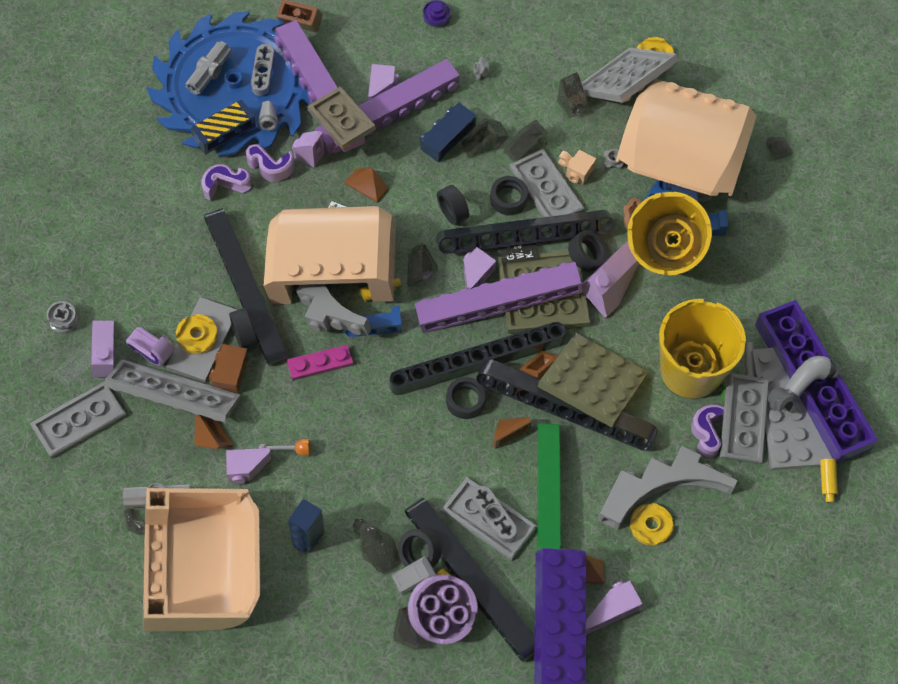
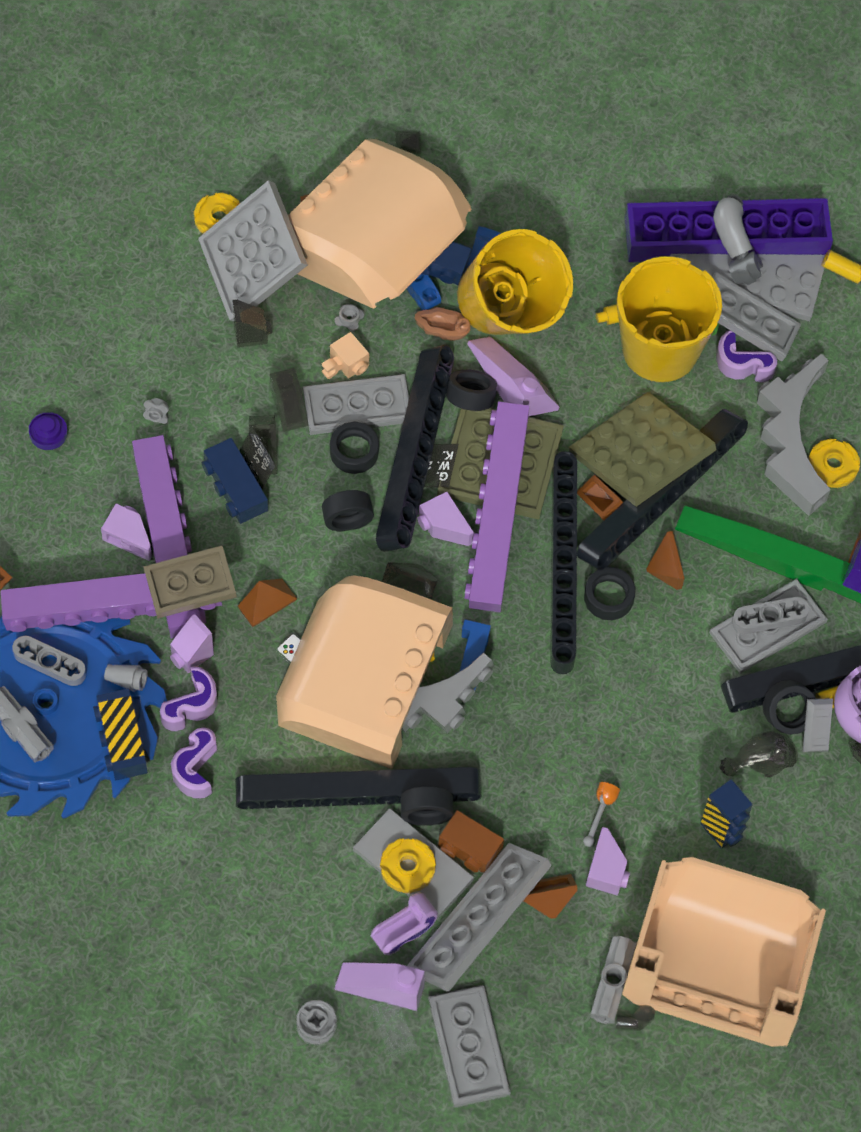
camera: 70 degrees left, 0 degrees up
(320, 362) = (498, 739): dark pink plate -> none

